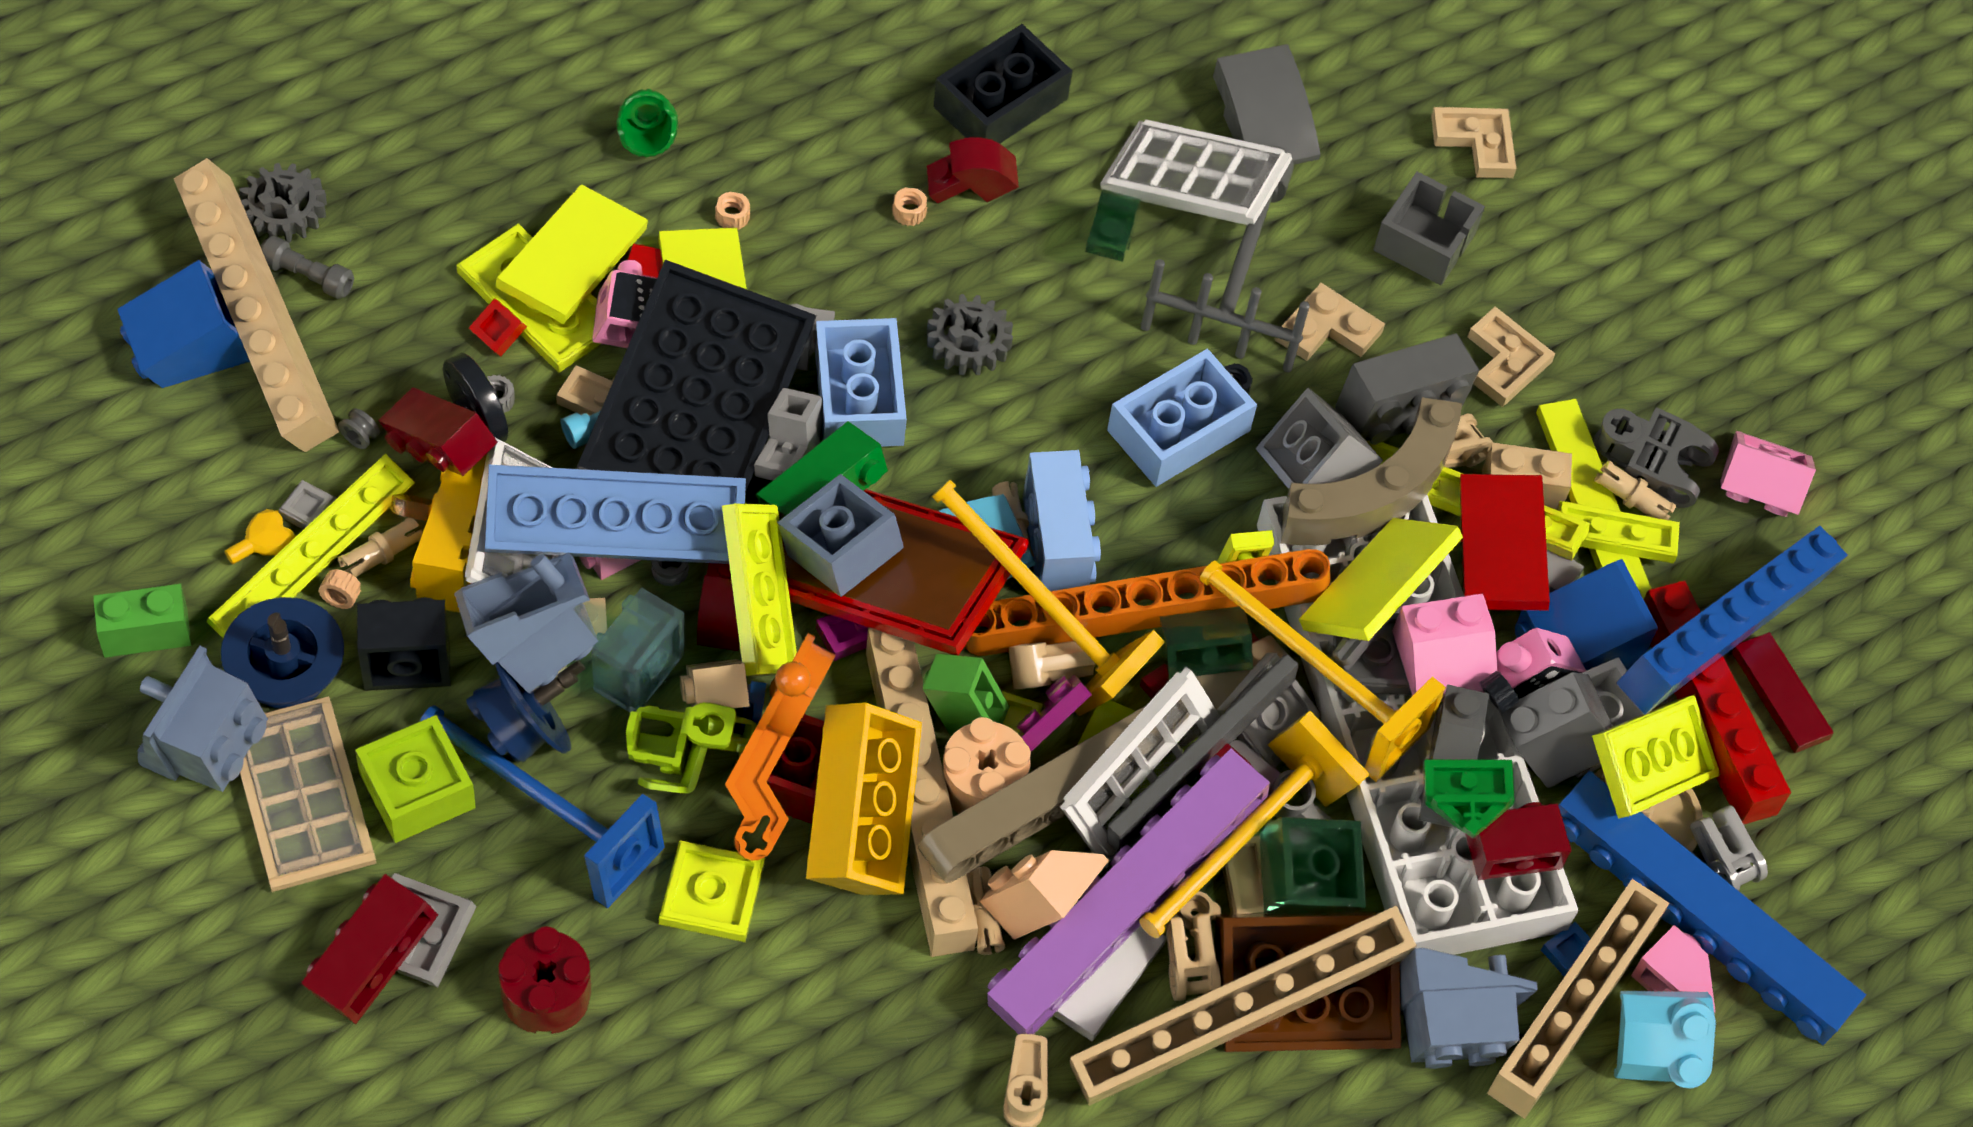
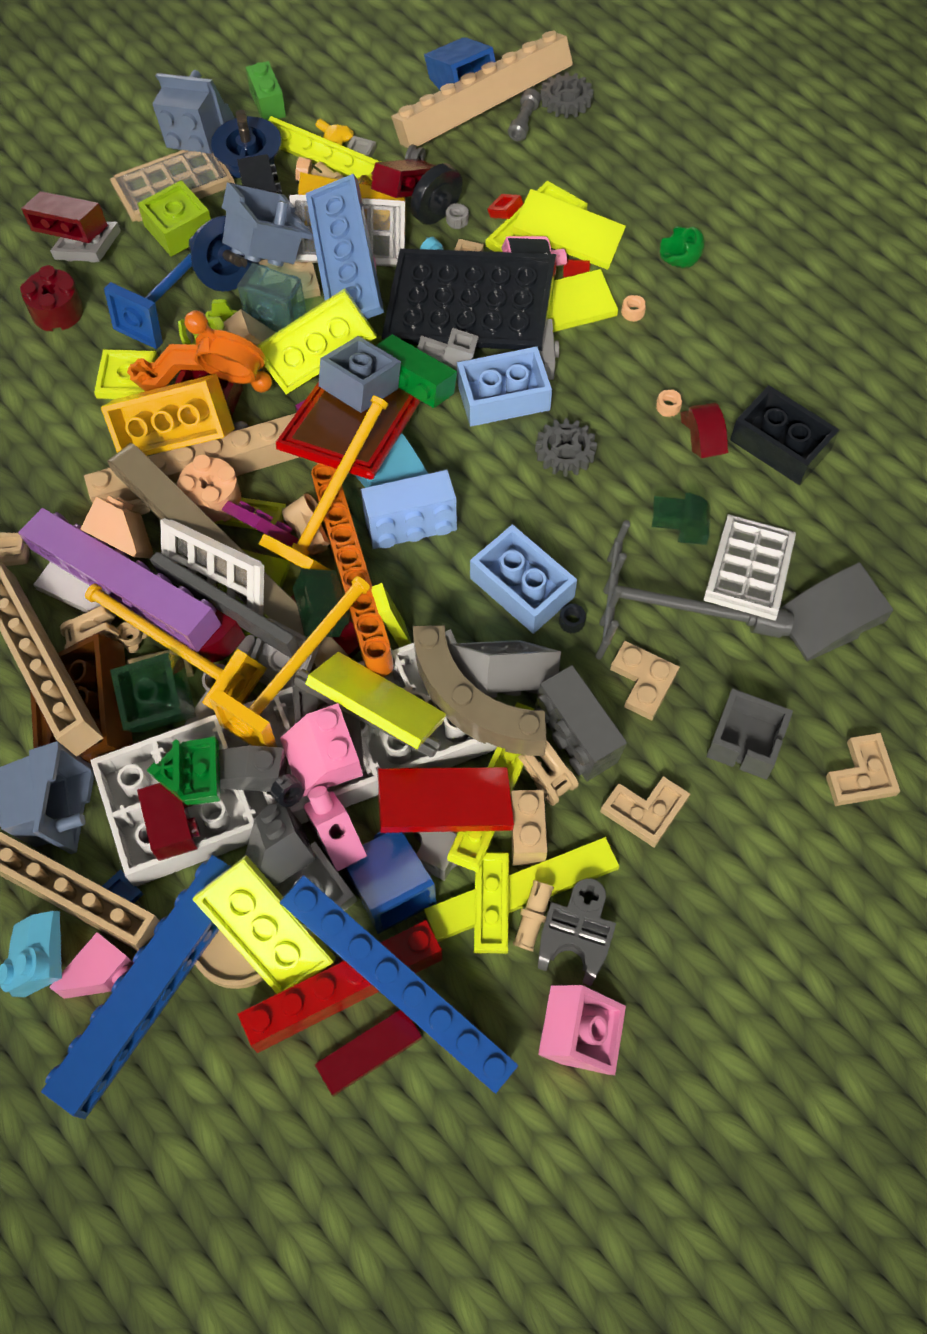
camera: 90 degrees right, 5 degrees up
(963, 691) = (260, 471): bright green brick -> none
(1729, 848) = (193, 1007): light grey piece -> none

